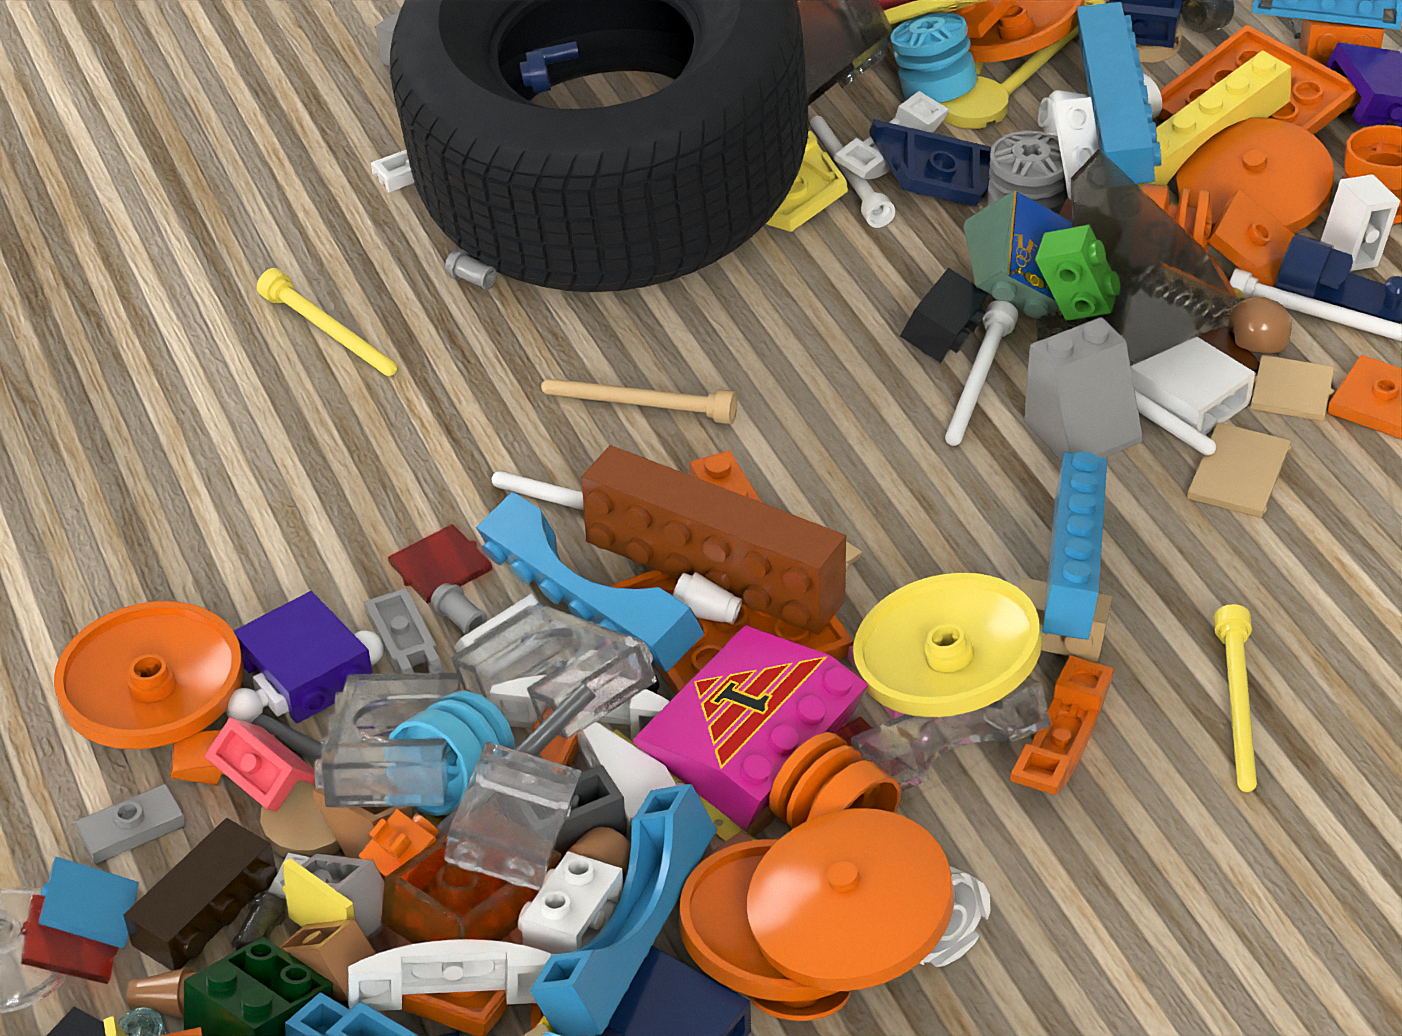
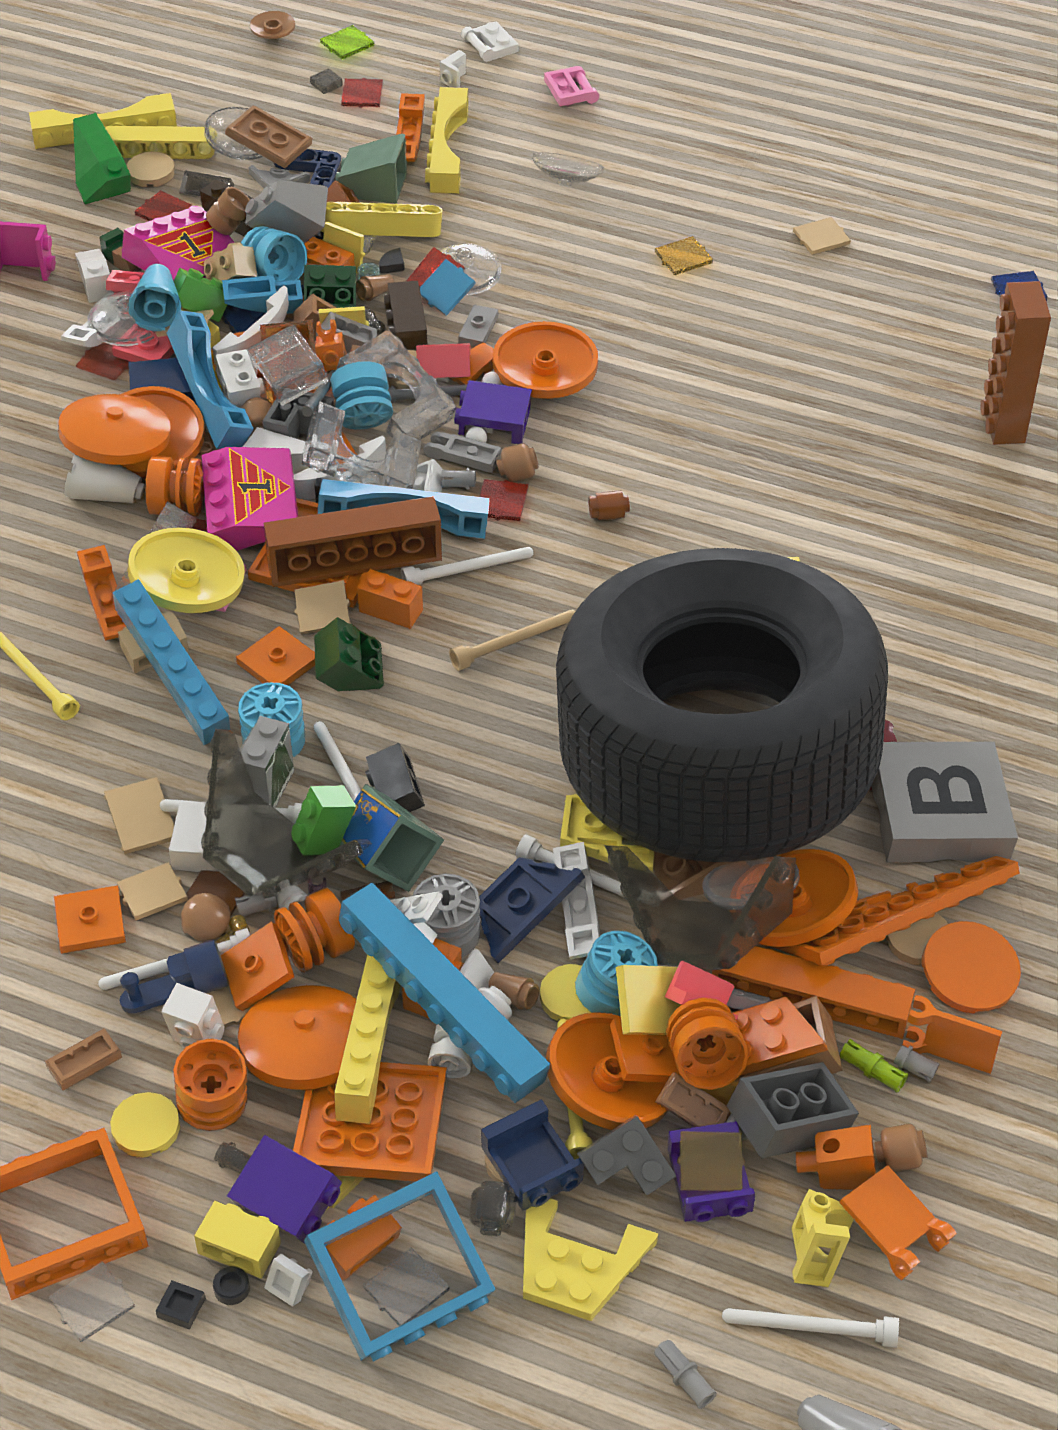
camera: 135 degrees right, 5 degrees up
(349, 459) = (608, 505): none -> dark orange brick
(369, 570) = (518, 462): none -> medium nougat head
(535, 69) = (687, 574): dark blue plate -> none
(850, 469) = (348, 658): none -> dark green slope
(922, 535) = (277, 658): none -> orange plate
(1015, 437) = (274, 702): none -> medium azure wheel
(1019, 114) = (518, 989): none -> medium nougat cone

